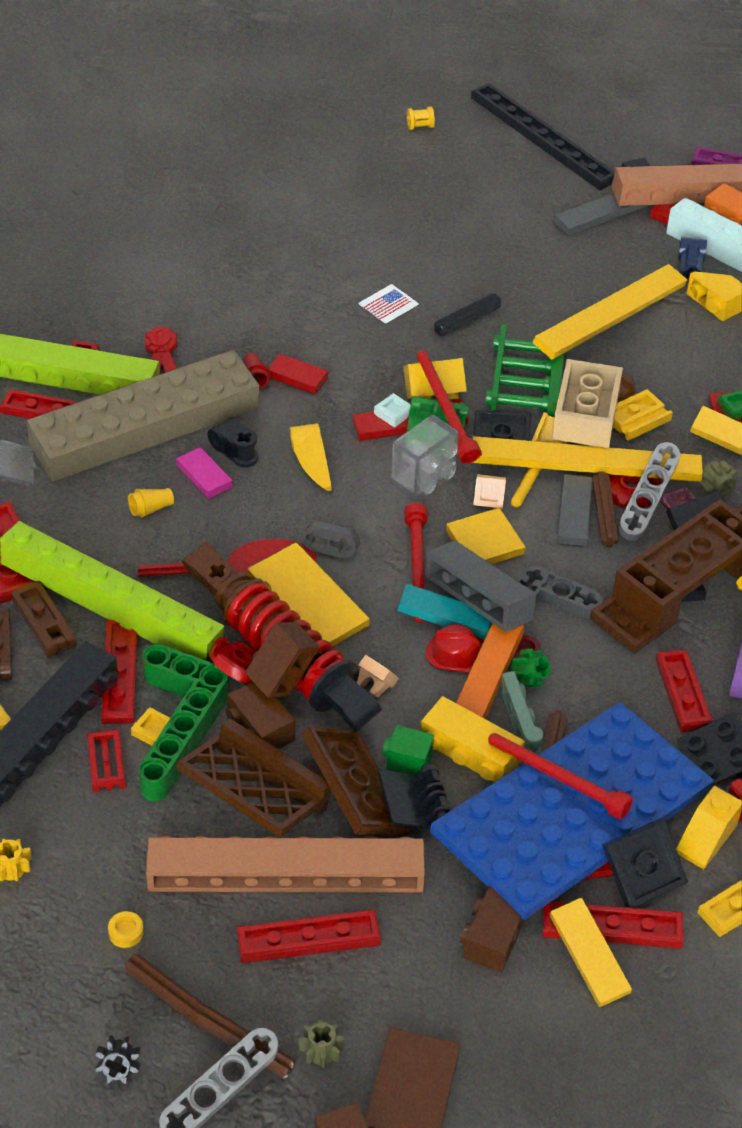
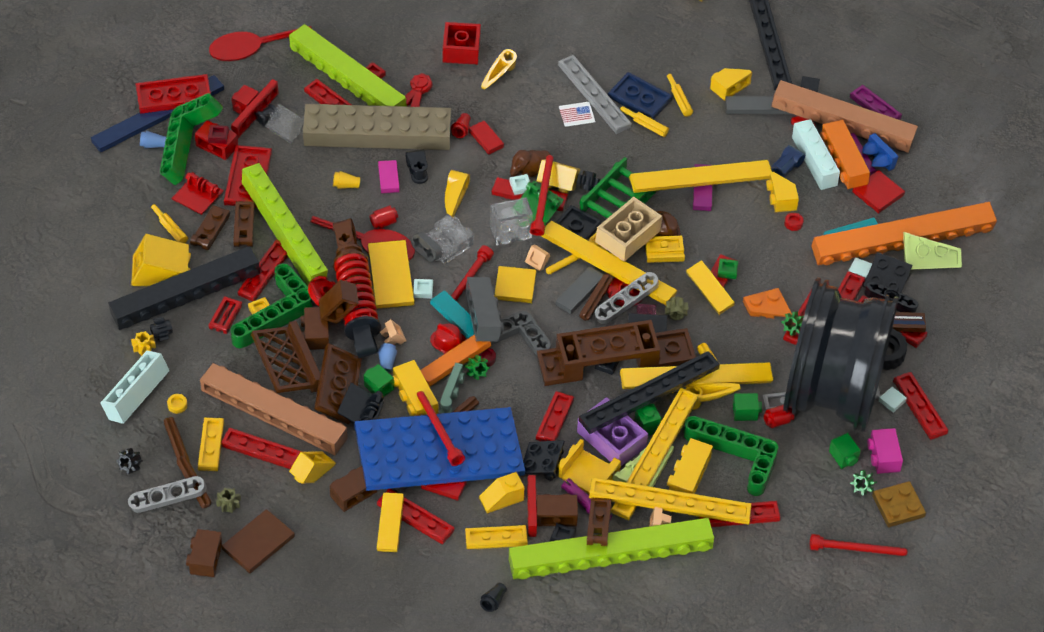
camera: 30 degrees right, 5 degrees up
(24, 824) = (161, 328): none -> black gear
(46, 935) = (135, 386): none -> light aqua brick
(180, 272) = (461, 43): none -> red brick
(225, 968) = (211, 444): none -> yellow tile
(240, 526) = (383, 217): none -> red brick
(254, 280) = (500, 67): none -> yellow piece
(353, 510) = (451, 237): none -> clear plate
(367, 596) = (423, 288): none -> light aqua tile
(382, 379) = (528, 162): none -> reddish brown hair
(393, 272) = (594, 94): none -> light grey tile
(393, 709) = (387, 356): none -> medium blue cone
(409, 927) = (311, 466): none -> yellow slope
(450, 254) = (640, 96): none -> dark blue tile
(467, 314) = (616, 141): black axle -> none
(477, 371) = (587, 180): none -> black gear
(485, 278) = (647, 122): none -> yellow axle
(500, 236) = (680, 97): none -> yellow axle
(545, 197) = (730, 81): none -> yellow slope
(625, 335) = (702, 195): none -> magenta tile
(645, 863) = (451, 493): black tile -> none

